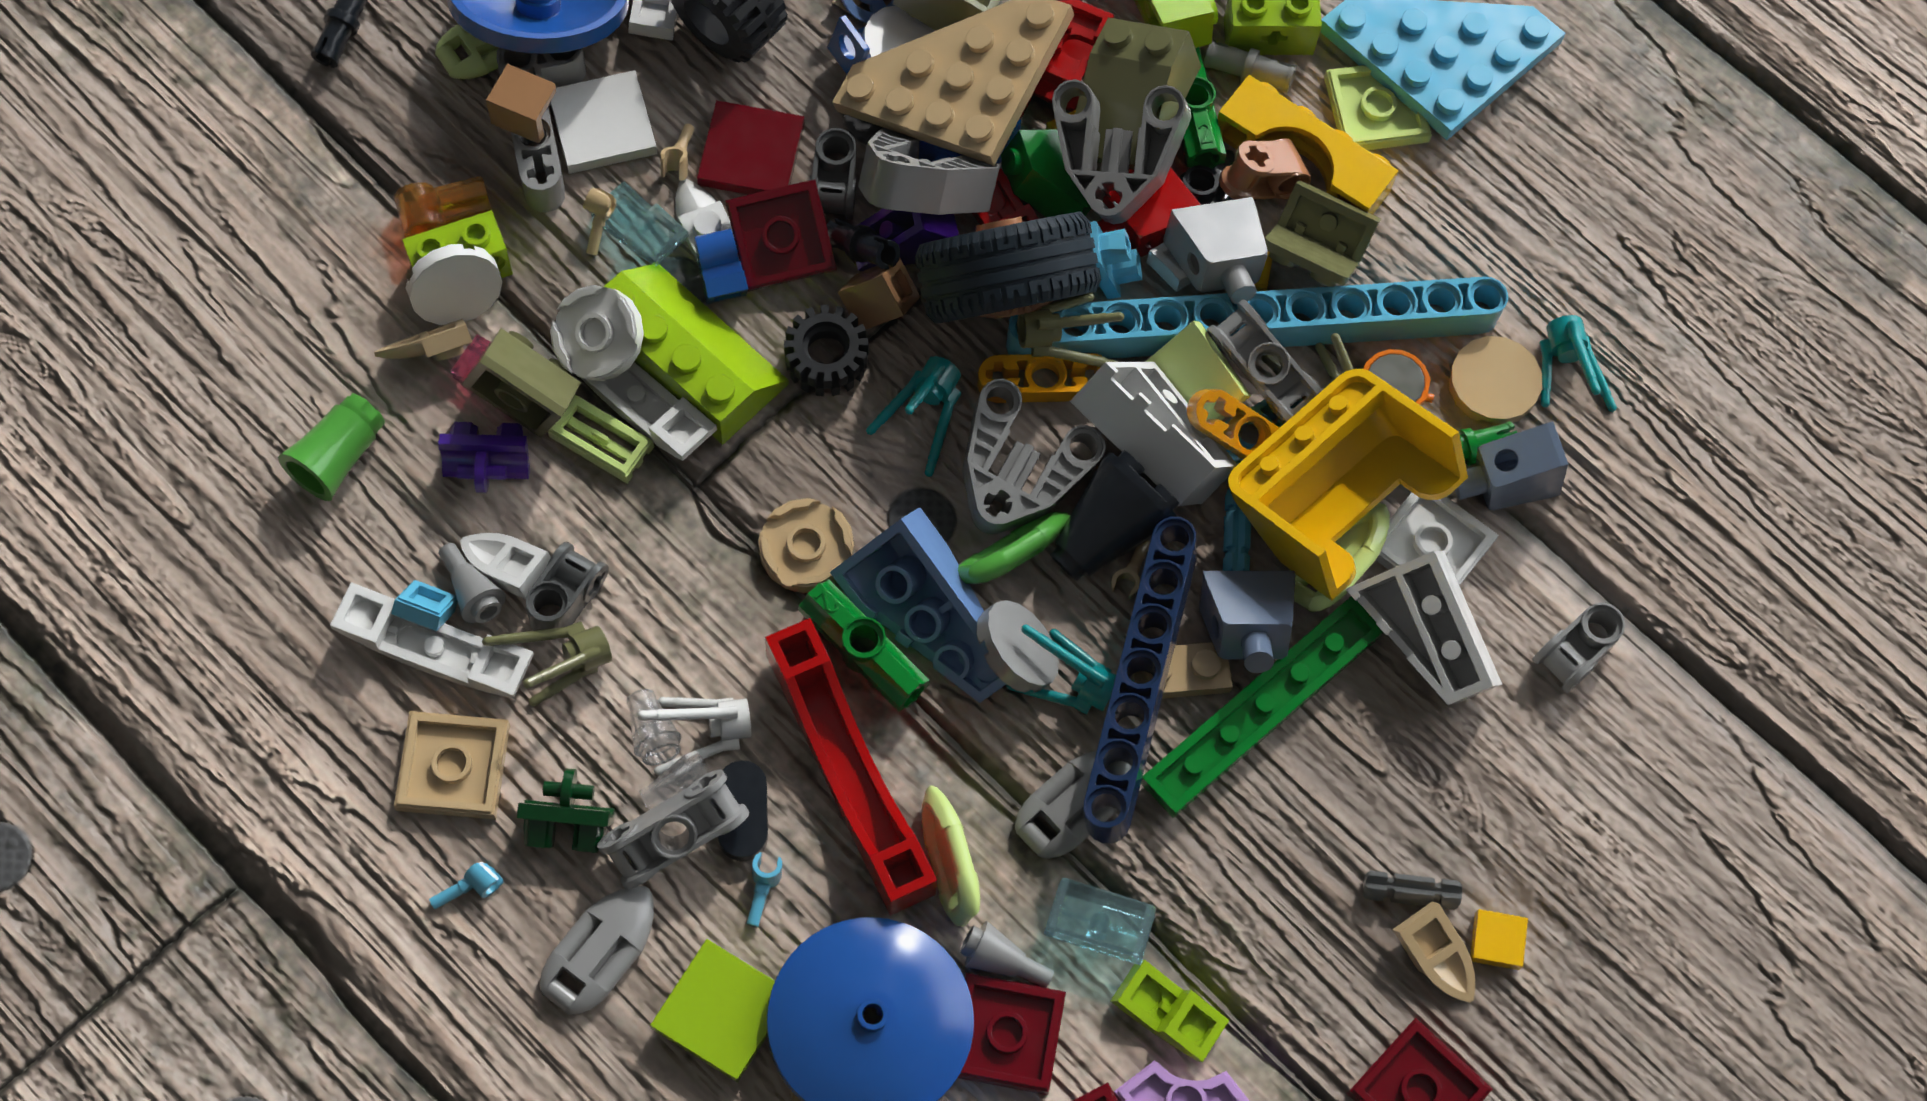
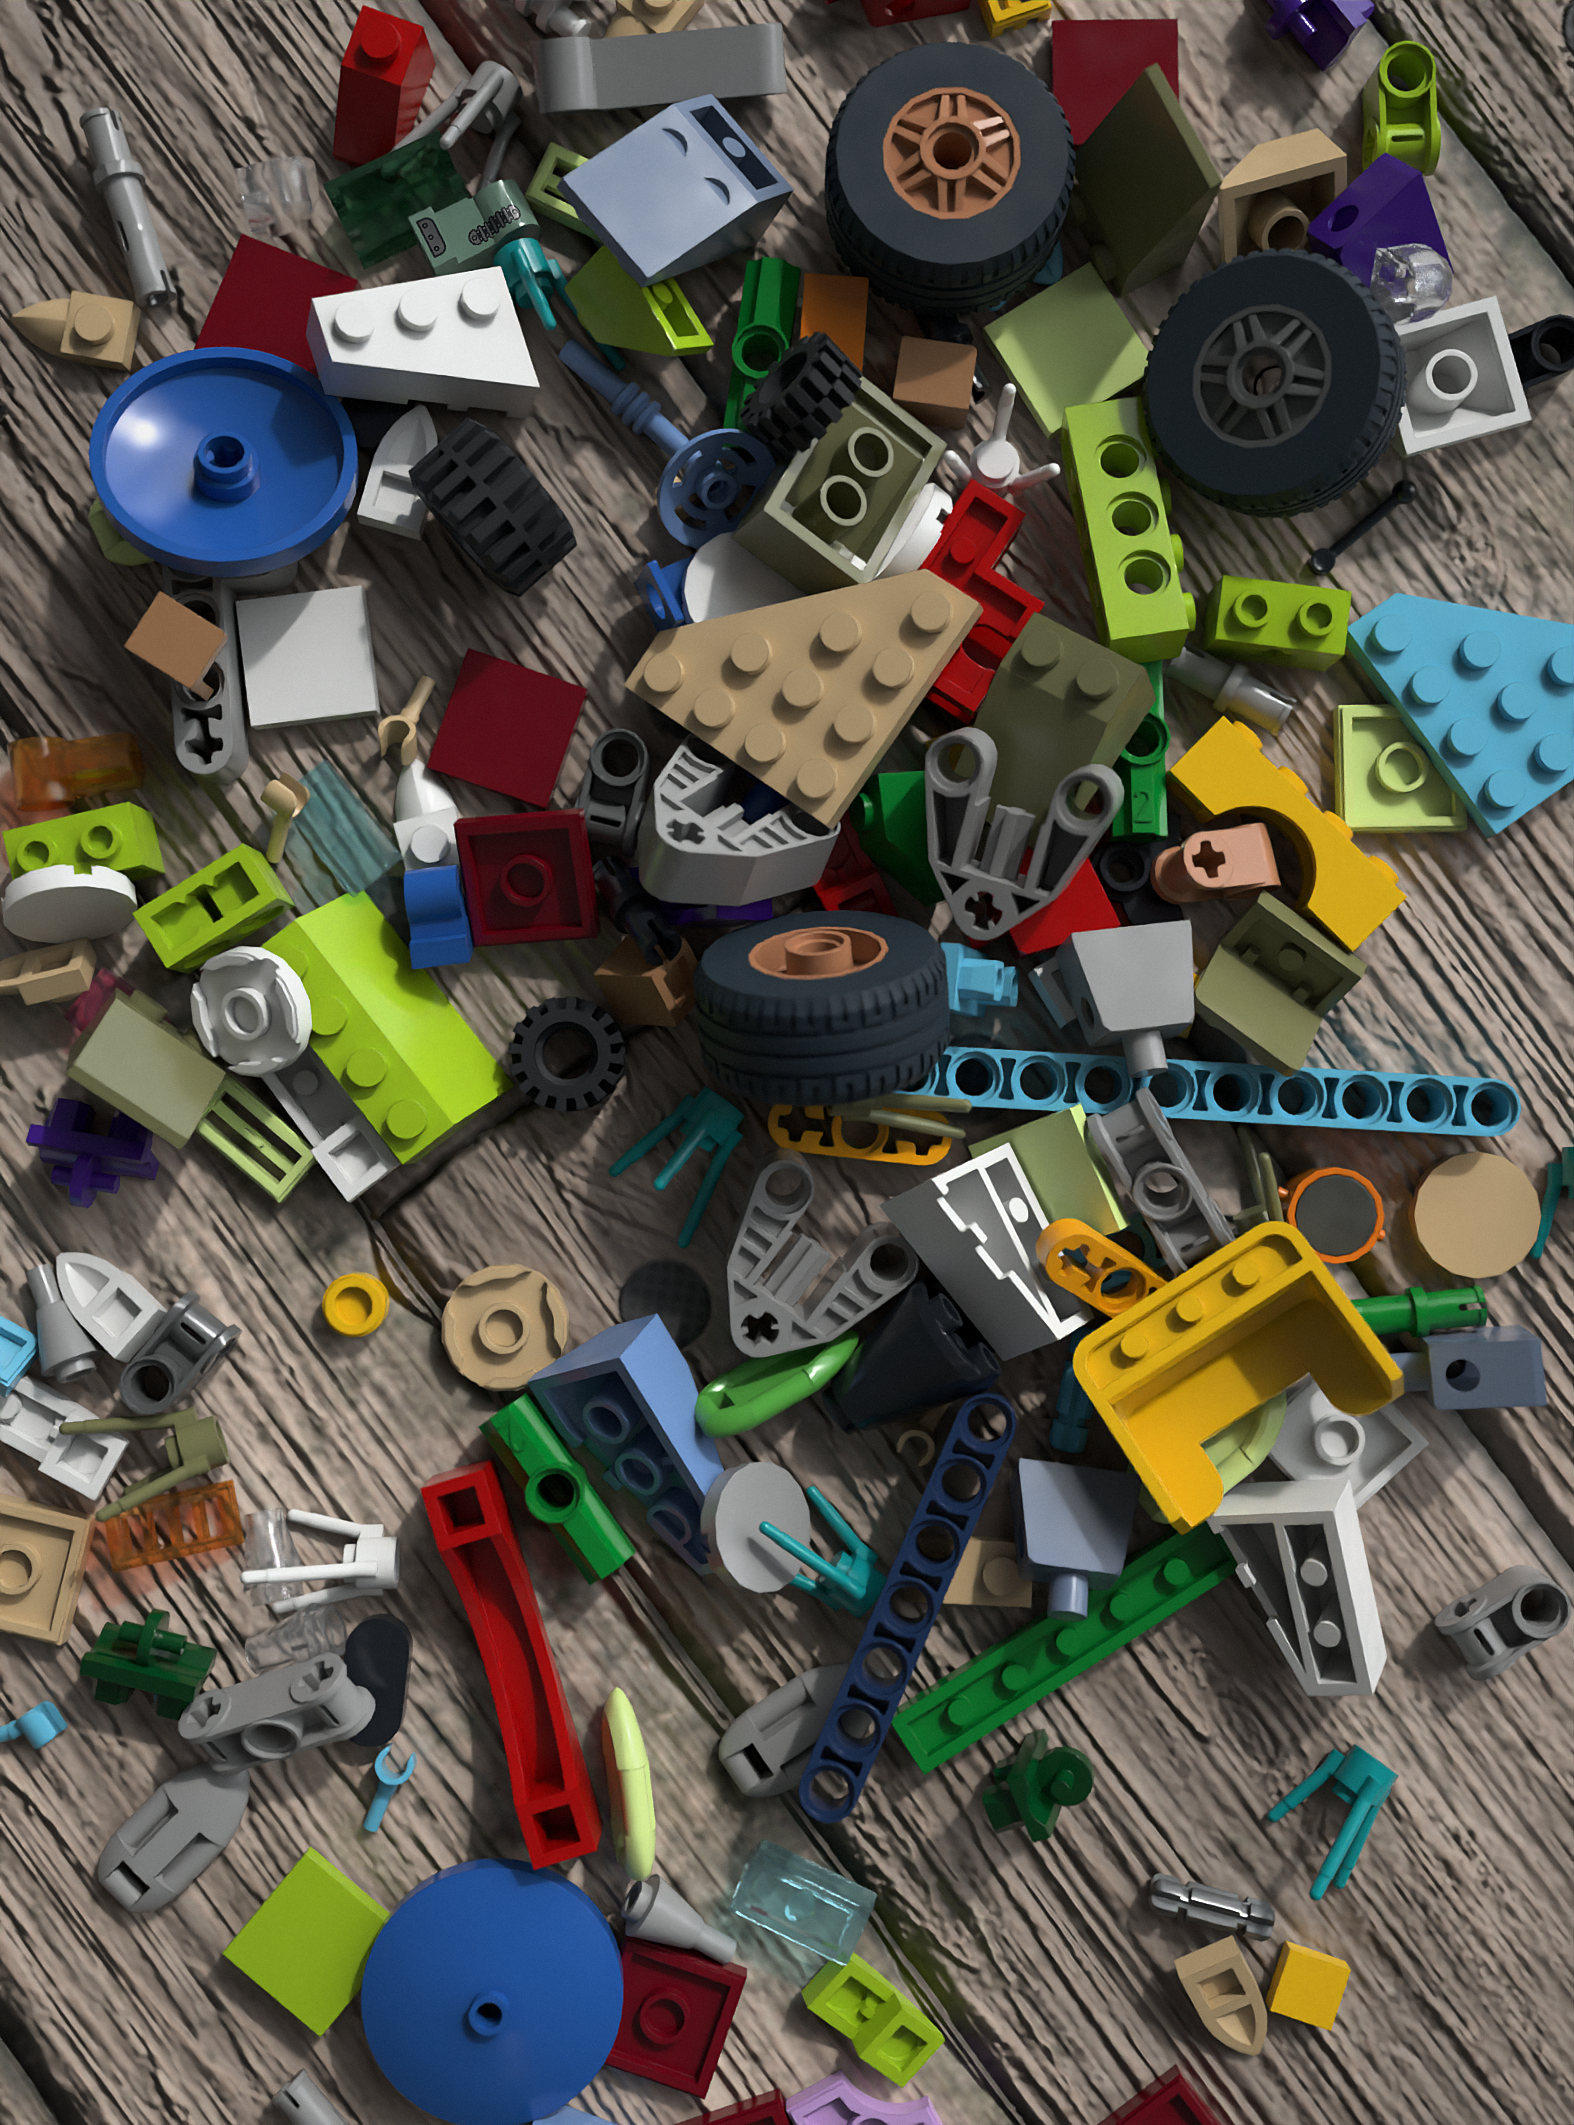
camera: 15 degrees right, 20 degrees up
(554, 273) = (213, 909): none -> lime brick
(575, 732) = (119, 1535): none -> clear orange slope
(691, 544) = (355, 1304): none -> yellow tile
(1261, 799) = (1036, 1786): none -> dark green hips
(1503, 781) = (1360, 1783): none -> teal plant

